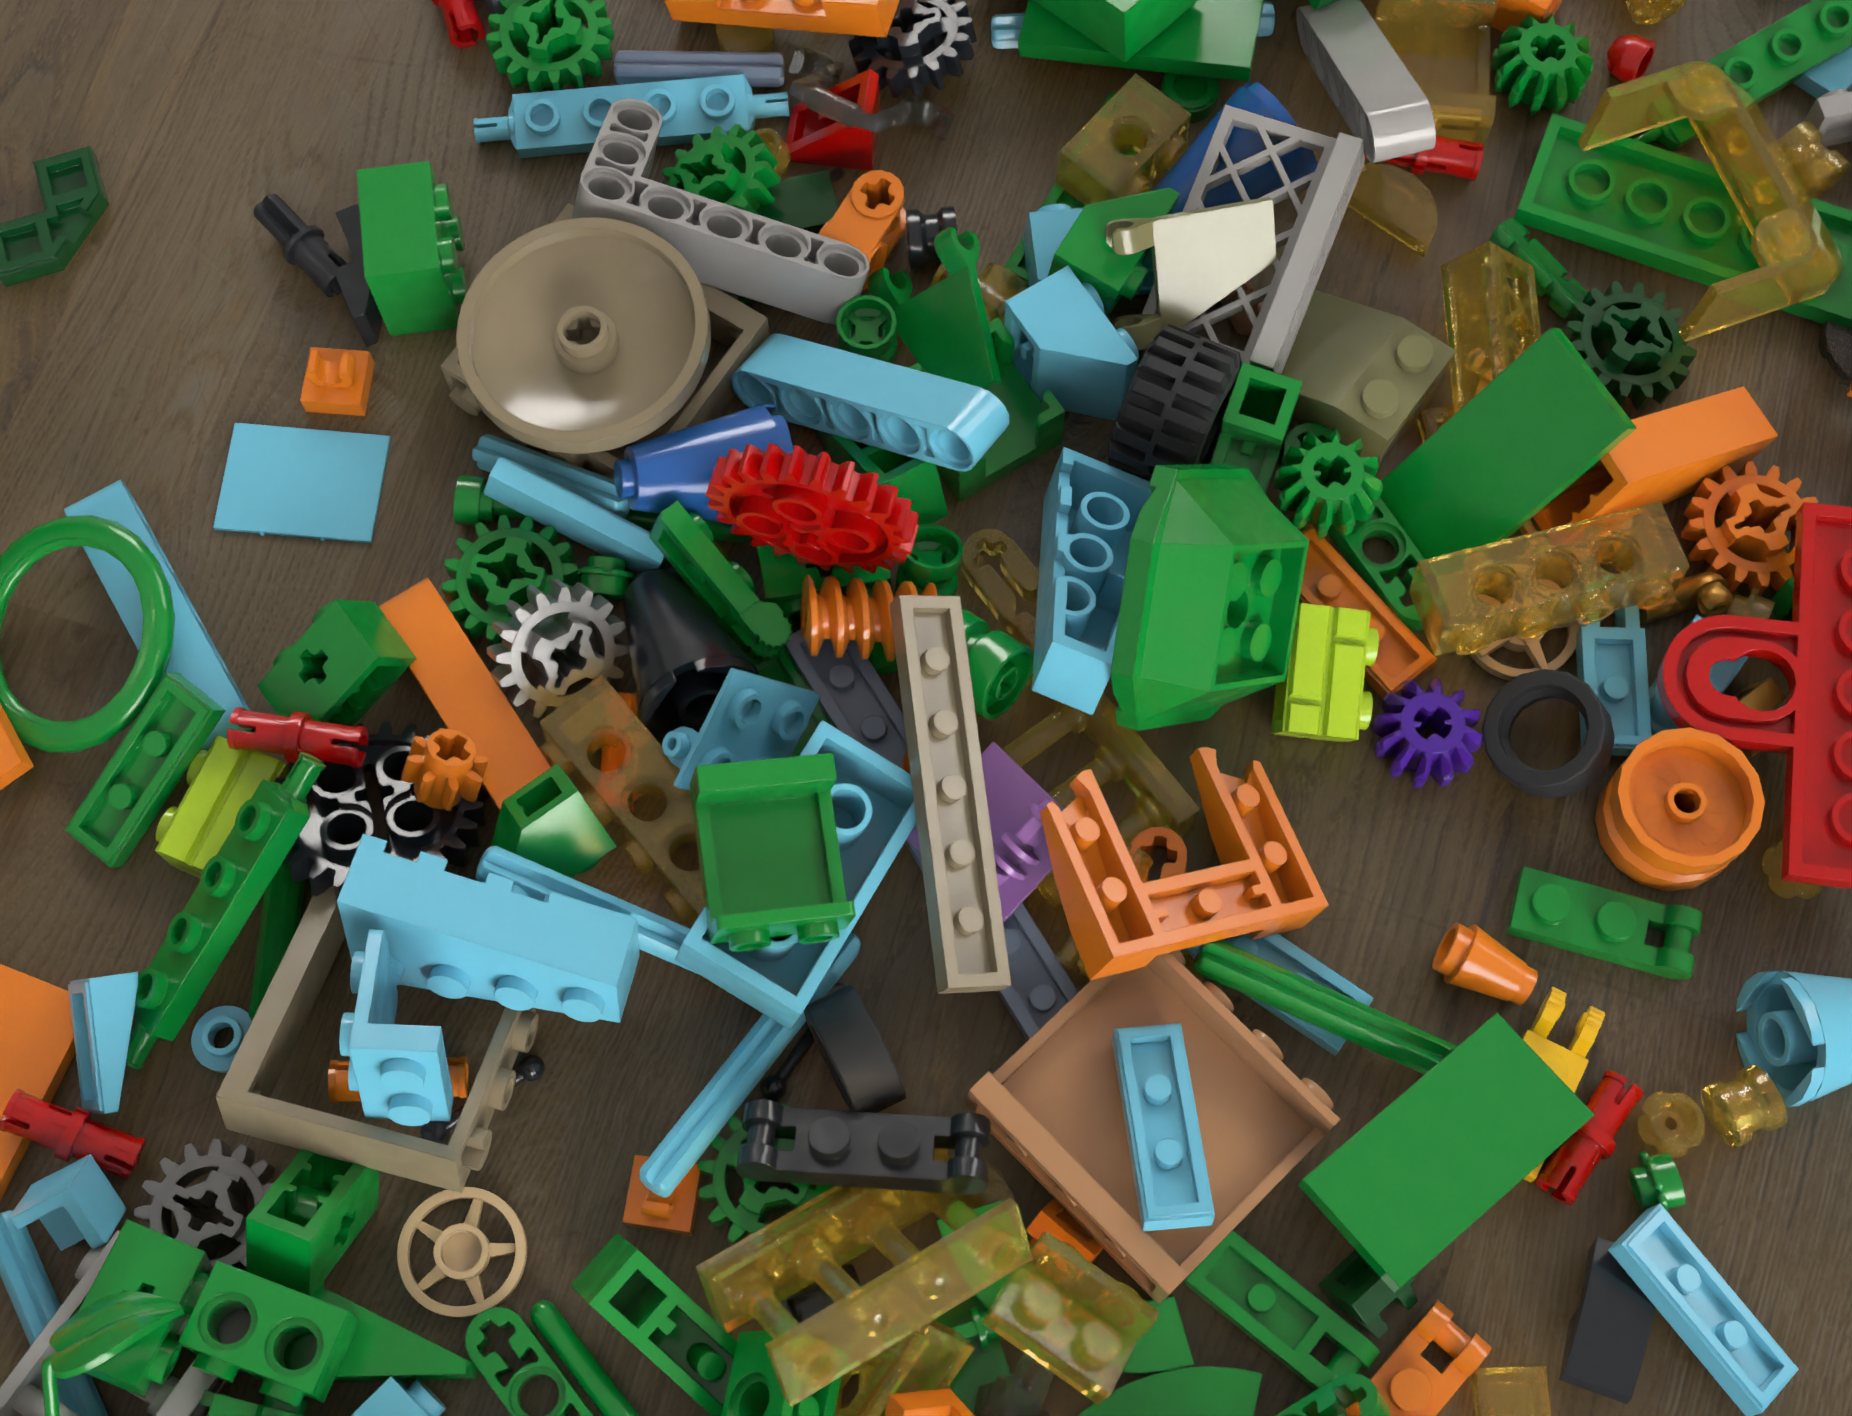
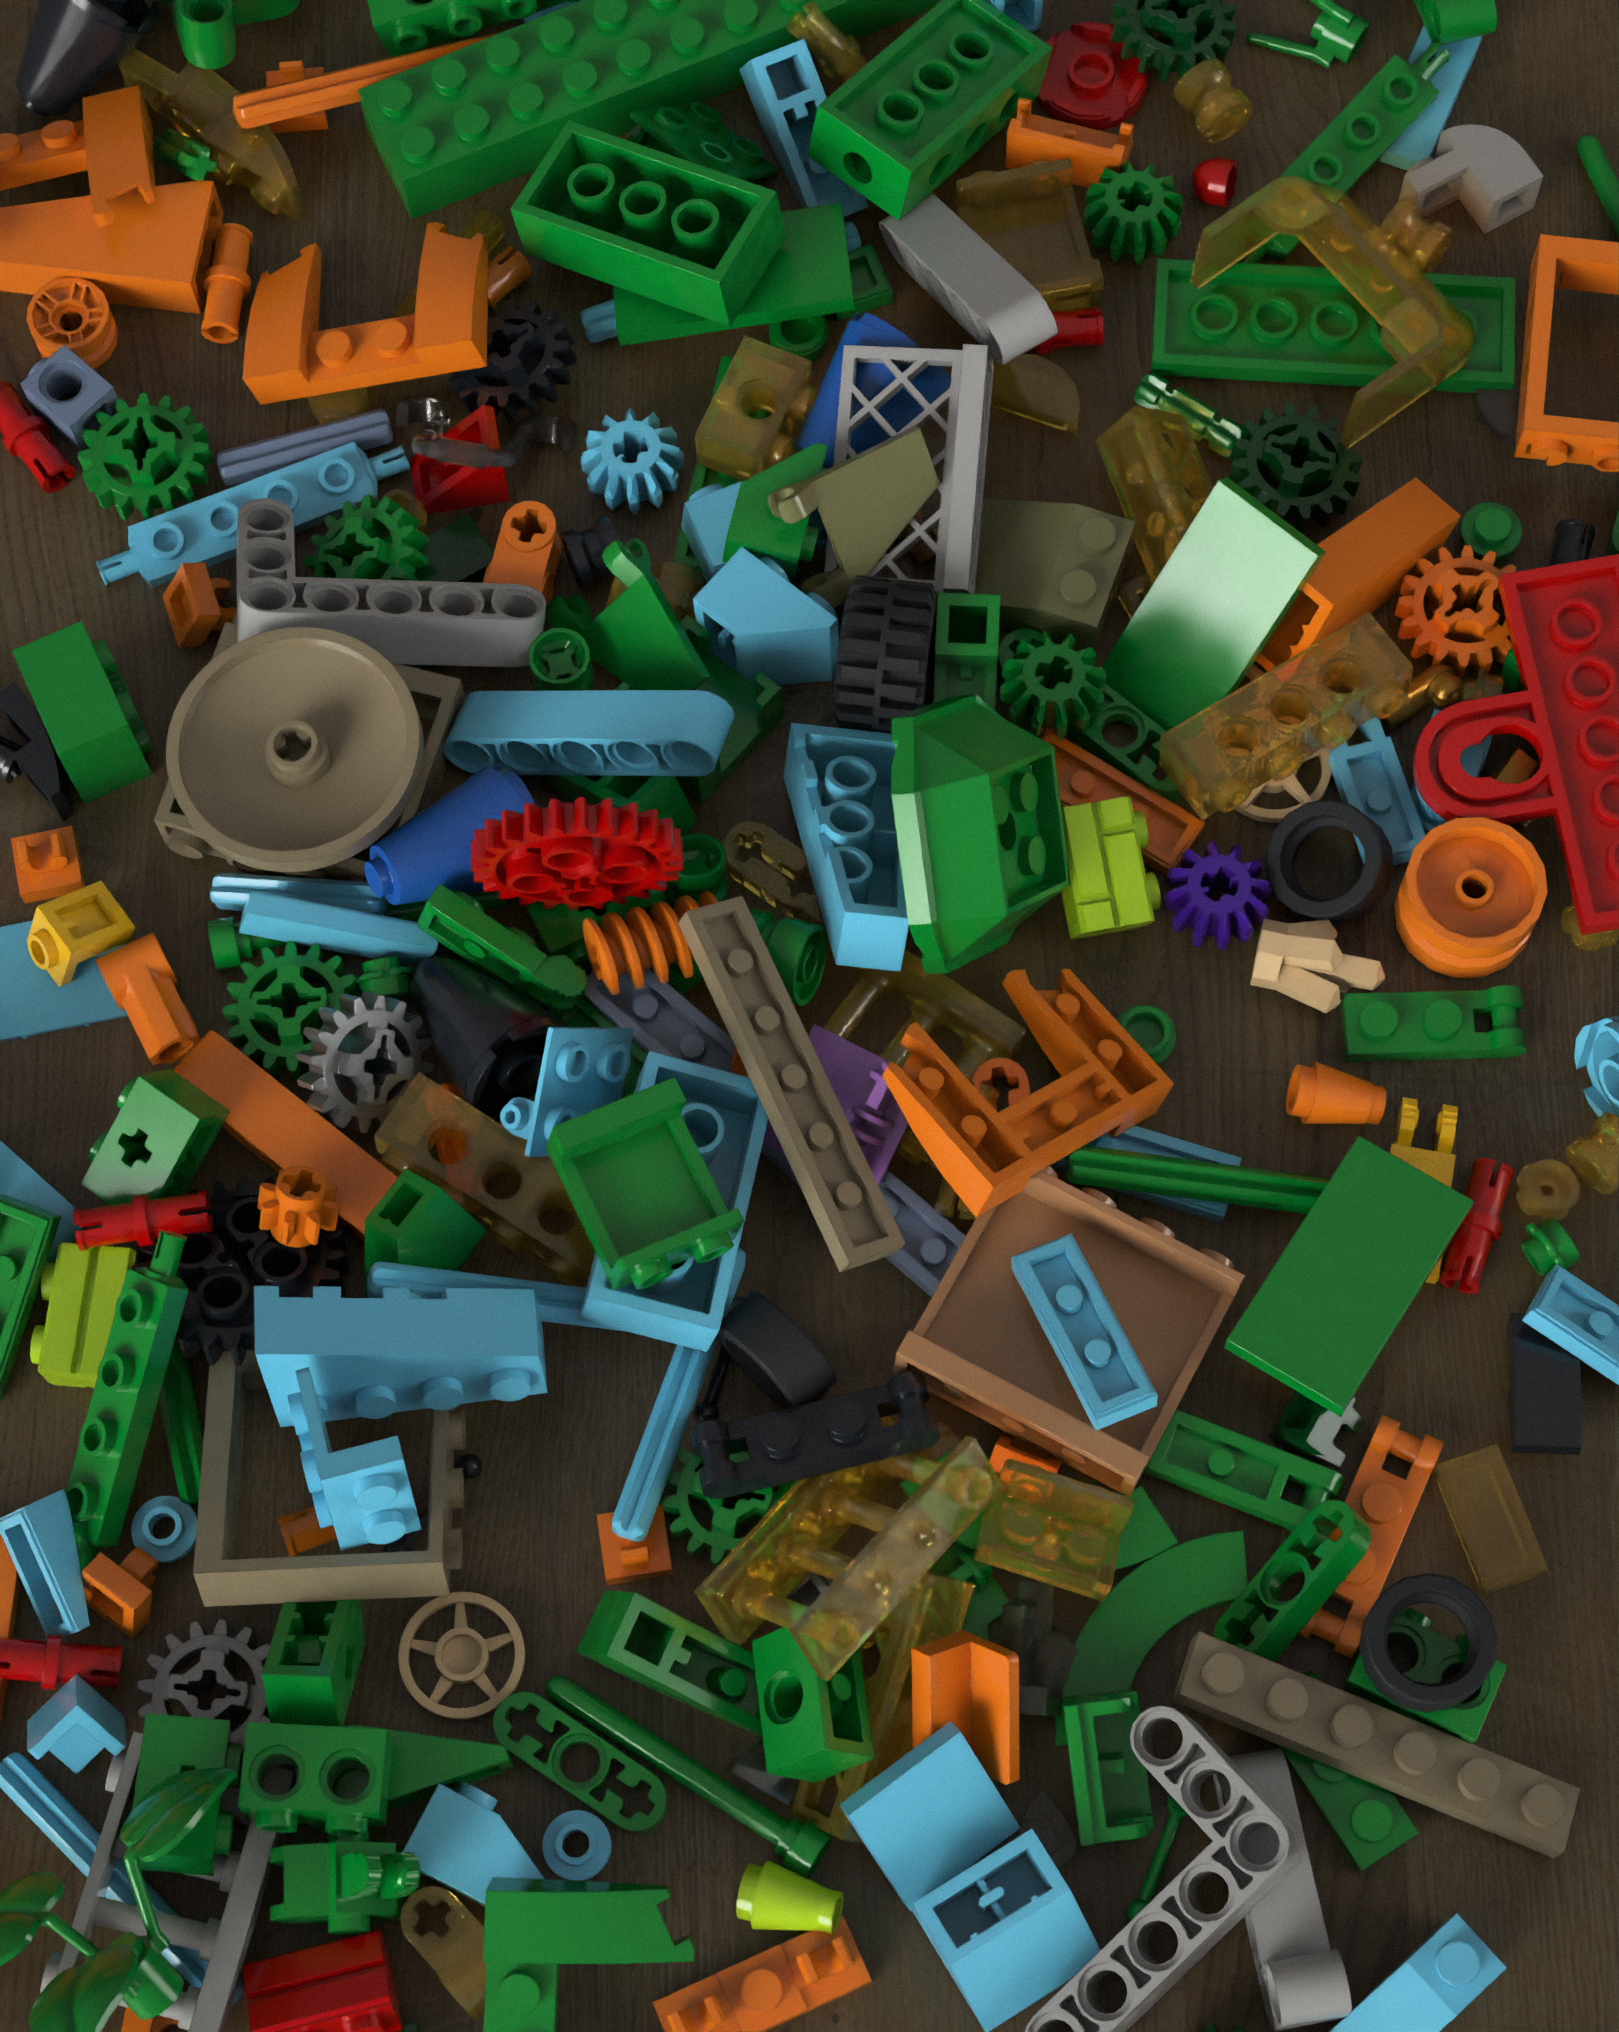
camera: 15 degrees left, 0 degrees up
(162, 1086) = (123, 1591): none -> orange tile
(339, 447) = (76, 930): none -> yellow bracket
(382, 517) = (147, 991): none -> orange piece
(548, 180) = (194, 605): none -> orange tile
(995, 164) = (630, 440): none -> medium azure gear
(1269, 62) = (869, 282): none -> green tile
(1322, 845) = (1151, 1030): none -> green plate
(1498, 827) = (1309, 965): none -> tan rock
(1803, 456) = (1491, 528): none -> green plate

